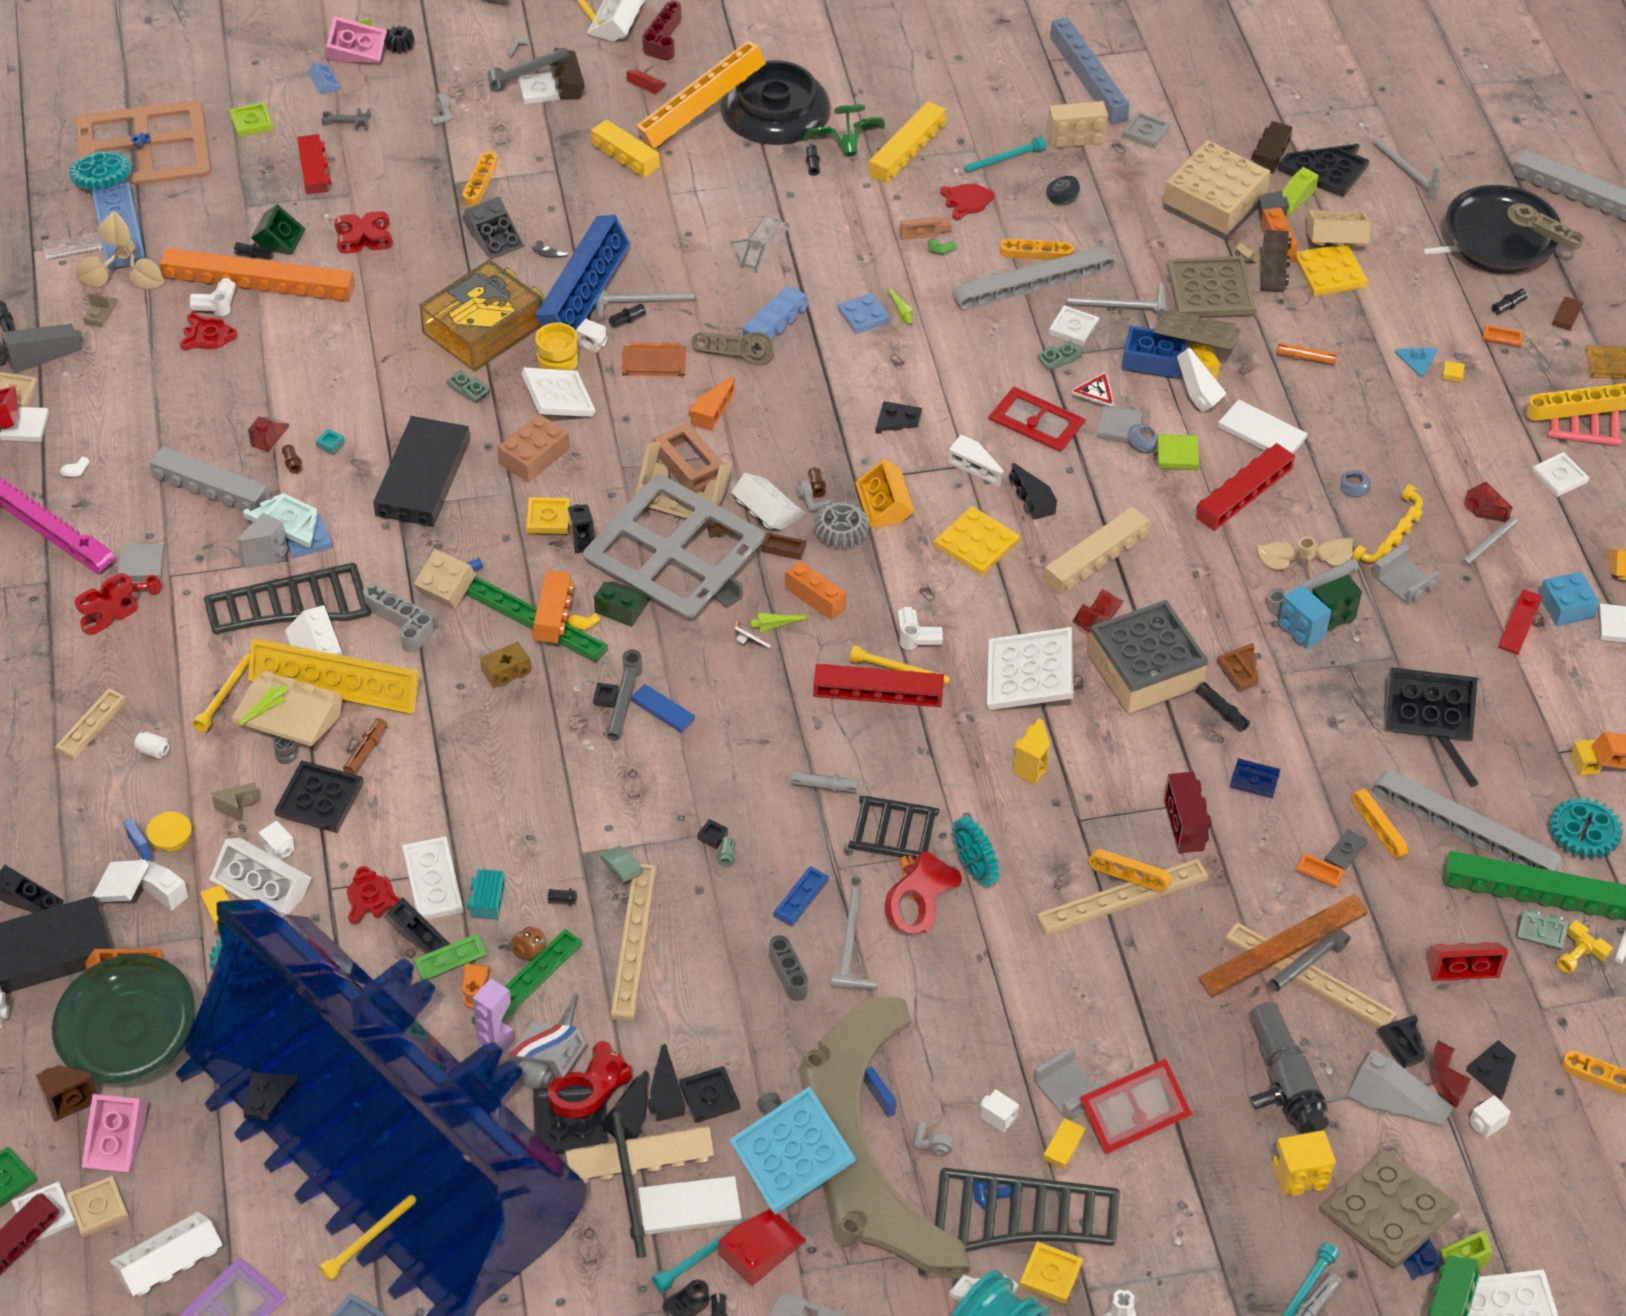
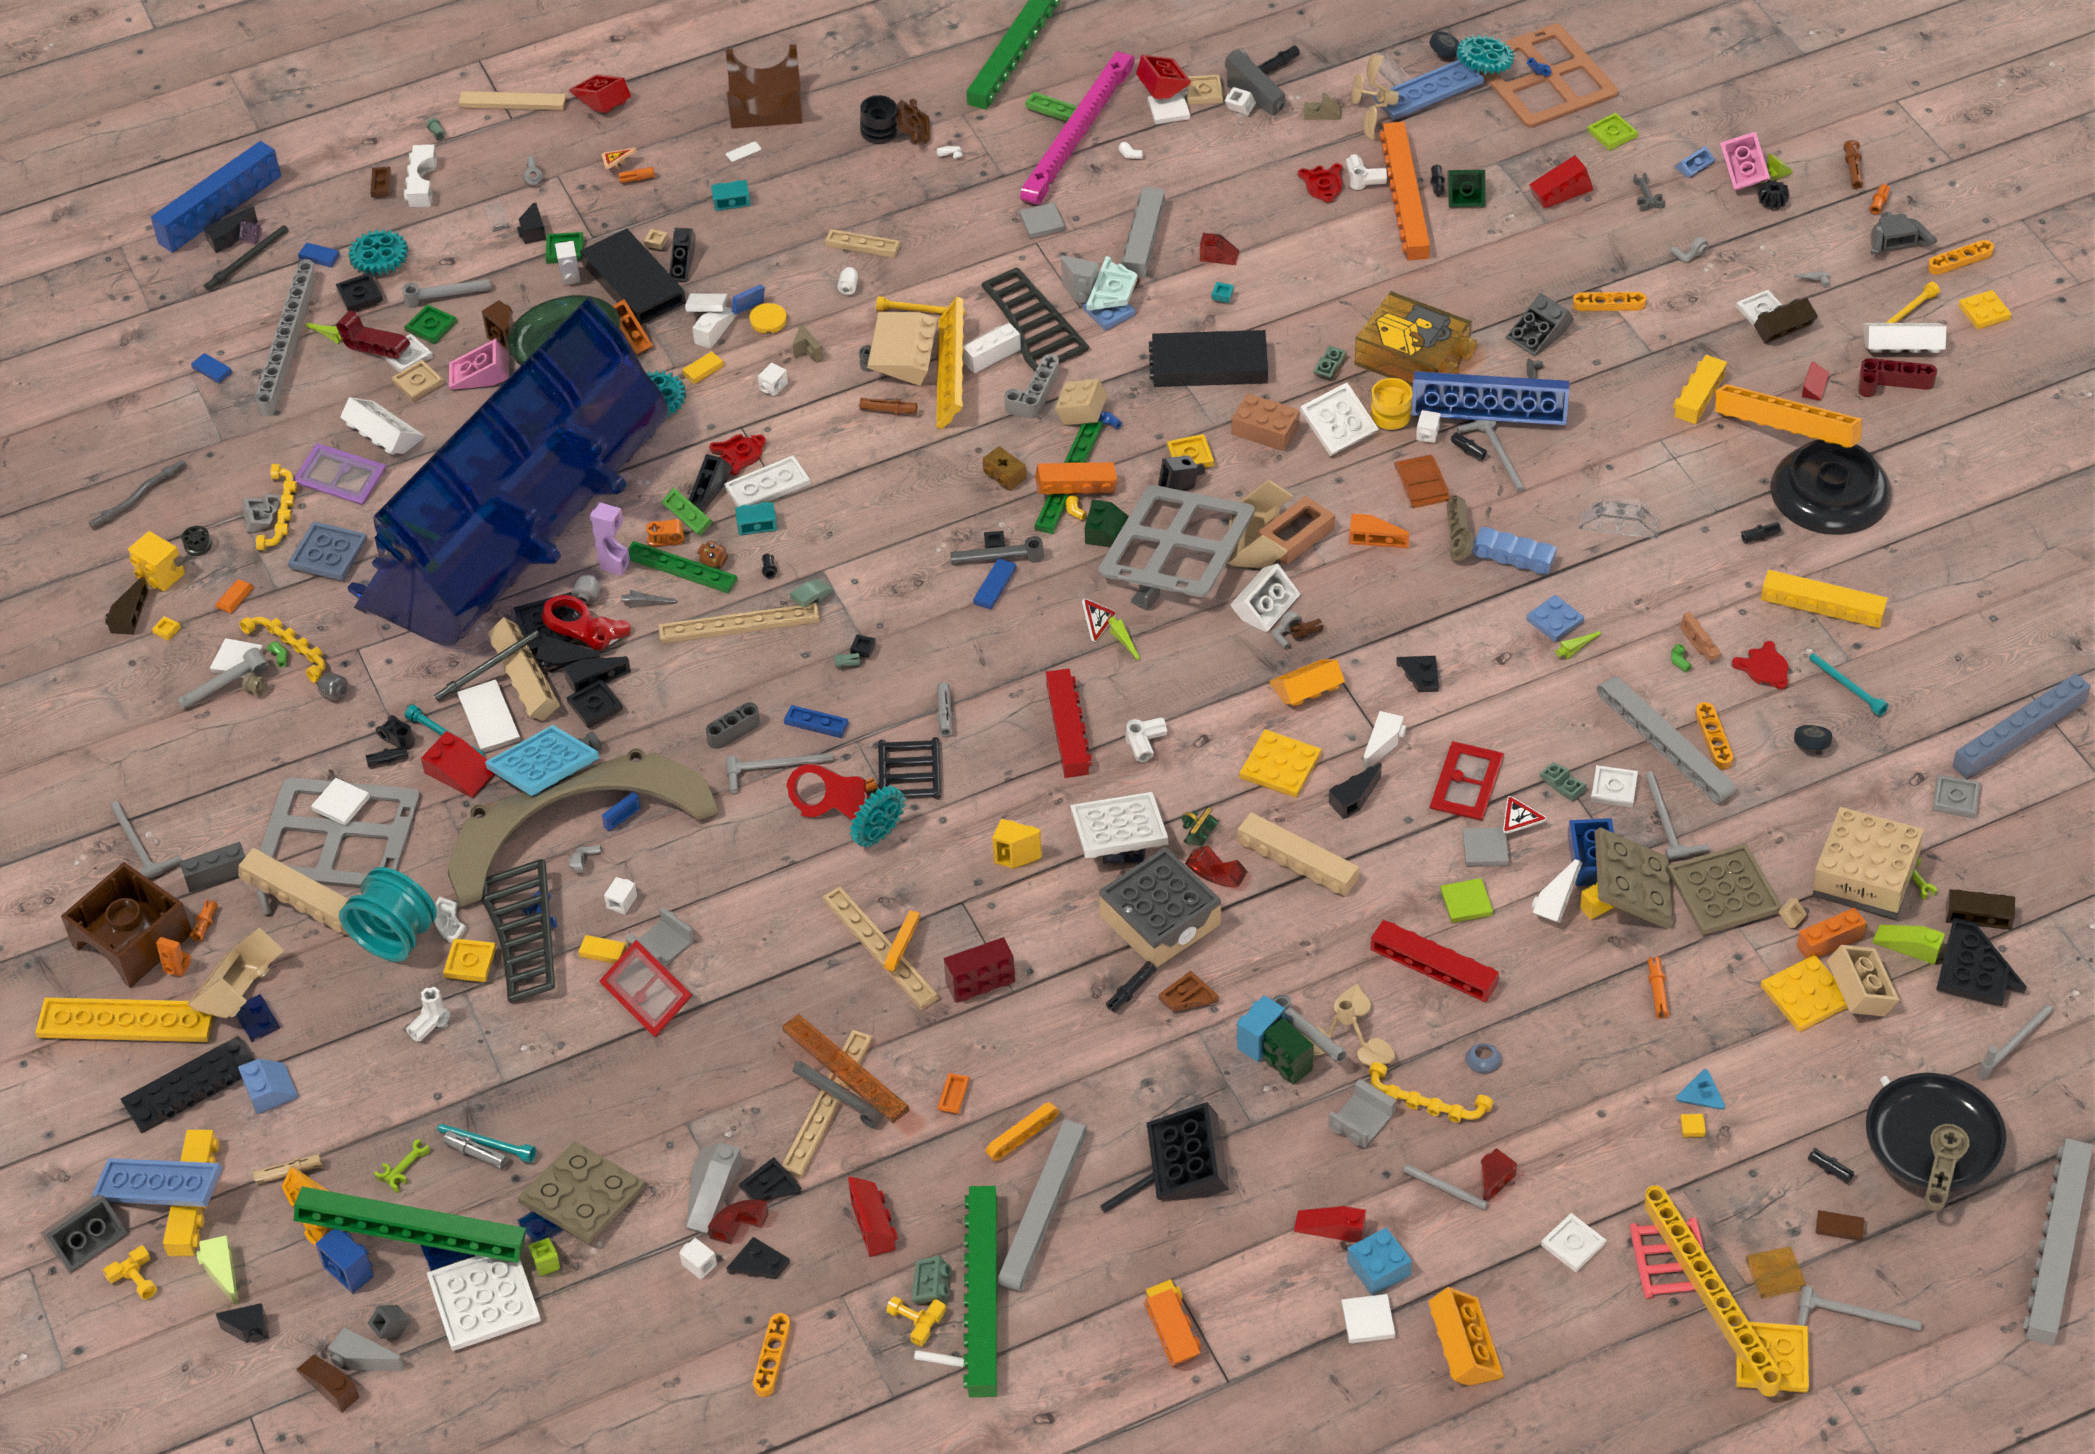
camera: 80 degrees right, 0 degrees up
(53, 358) = (1240, 101): none -> white brick
(62, 196) = (1444, 44): none -> black wheel
(106, 604) = (978, 208): red piece -> none
(151, 584) = (1017, 230): red bar -> none
(259, 875) = (735, 380): white slope -> none
(270, 699) = (897, 324): lime piece -> none
(292, 460) = (1188, 276): reddish brown pin -> none
(318, 796) = (827, 392): black plate -> none
(363, 232) = (1493, 242): red piece -> none
(498, 77) = (1757, 276): dark grey piece -> none
(550, 1044) = (603, 587): light grey panel -> none
(718, 529) = (1226, 580): reddish brown pin -> none
(784, 546) = (1218, 624): reddish brown tile -> none
(815, 590) = (1165, 653): orange brick -> none
(841, 518) = (1256, 652): light grey gear -> none
(849, 142) = (1795, 550): green plant -> none
(858, 655) = (1100, 702): yellow piece -> none
(1041, 613) = (1196, 834): none -> clear green hips
(1077, 124) = (1915, 727): tan brick -> none
(1140, 442) = (1459, 869): sand blue piece -> none
(1255, 778) = (1048, 1025): clear blue plate -> none
(1260, 428) = (1527, 966): white tile -> none
(1274, 200) = (1877, 920): dark grey brick -> none
(1275, 260) = (1775, 929): dark brown brick -> none
(1289, 1071) = (705, 1094): dark grey piece -> none
(1304, 1163) = (606, 1114): yellow piece -> none
(1346, 850) = (984, 1111): dark grey plate -> none
(1503, 336) = (1772, 1165): orange tile -> none
(1601, 836) = (1069, 1306): teal gear -> none

